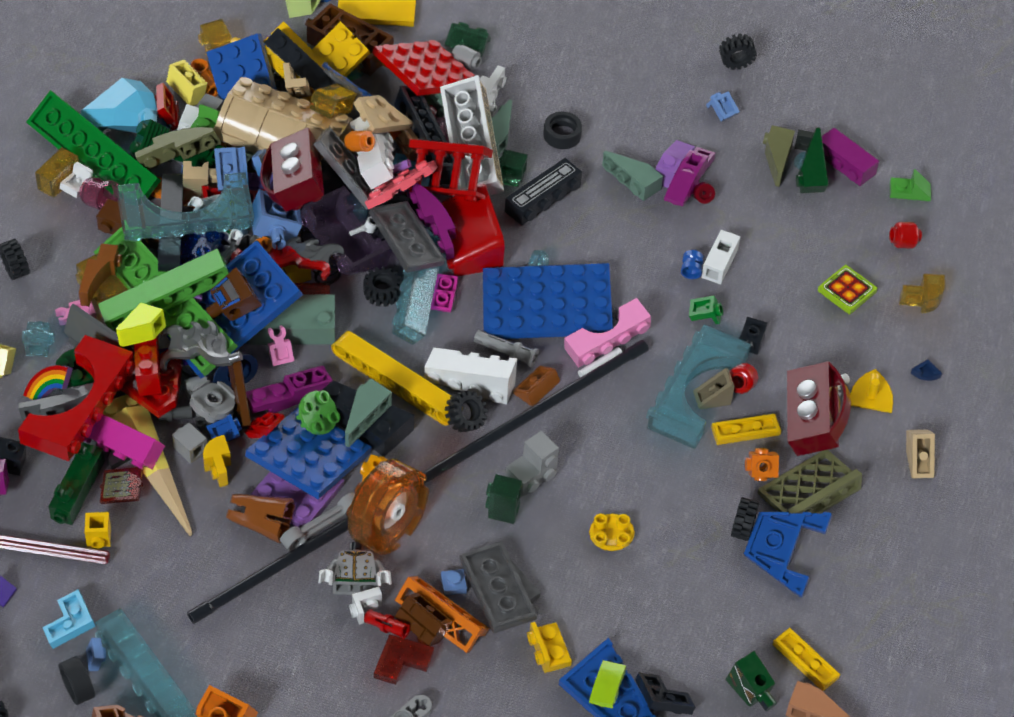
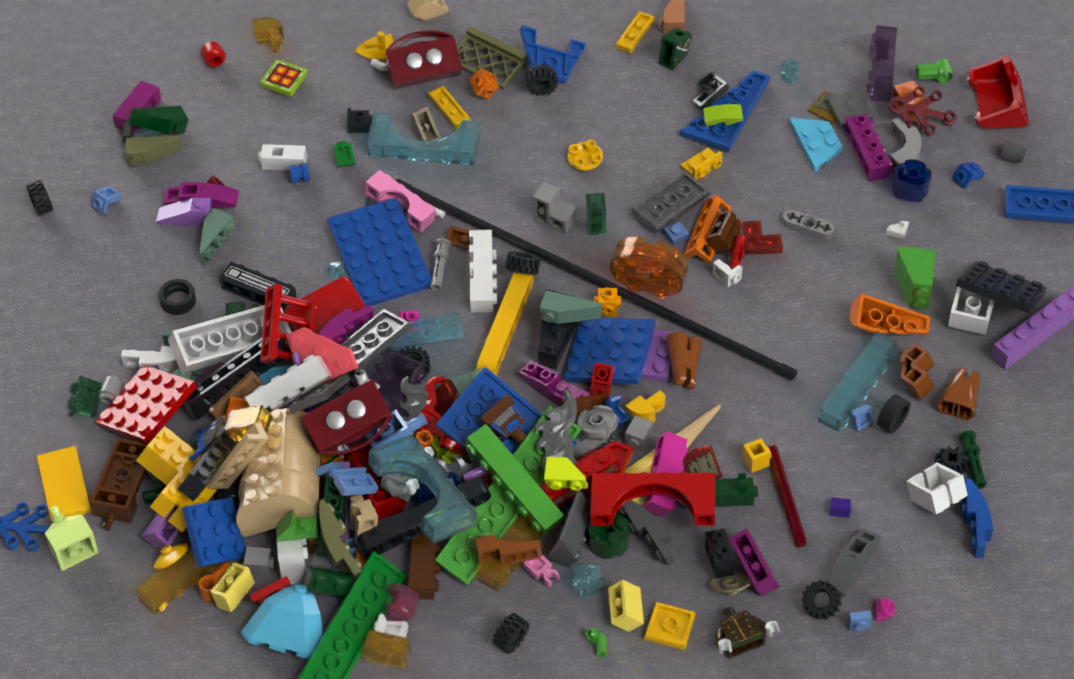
camera: 105 degrees left, 0 degrees up
(48, 380) = (636, 552): tile -> none
(73, 623) = (841, 440): medium azure plate -> none
(297, 536) = (646, 310): light grey piece -> none
(318, 412) = (575, 342): bright green plate -> none
(354, 571) = (703, 285): light grey torso -> none
(359, 141) = (294, 383): orange brick -> none
(381, 115) = (249, 387): tan wing -> none
(744, 377) = (403, 112): red head -> none
(913, 189) = (155, 67): bright green slope -> none
(926, 371) = (343, 22): dark blue tile -> none

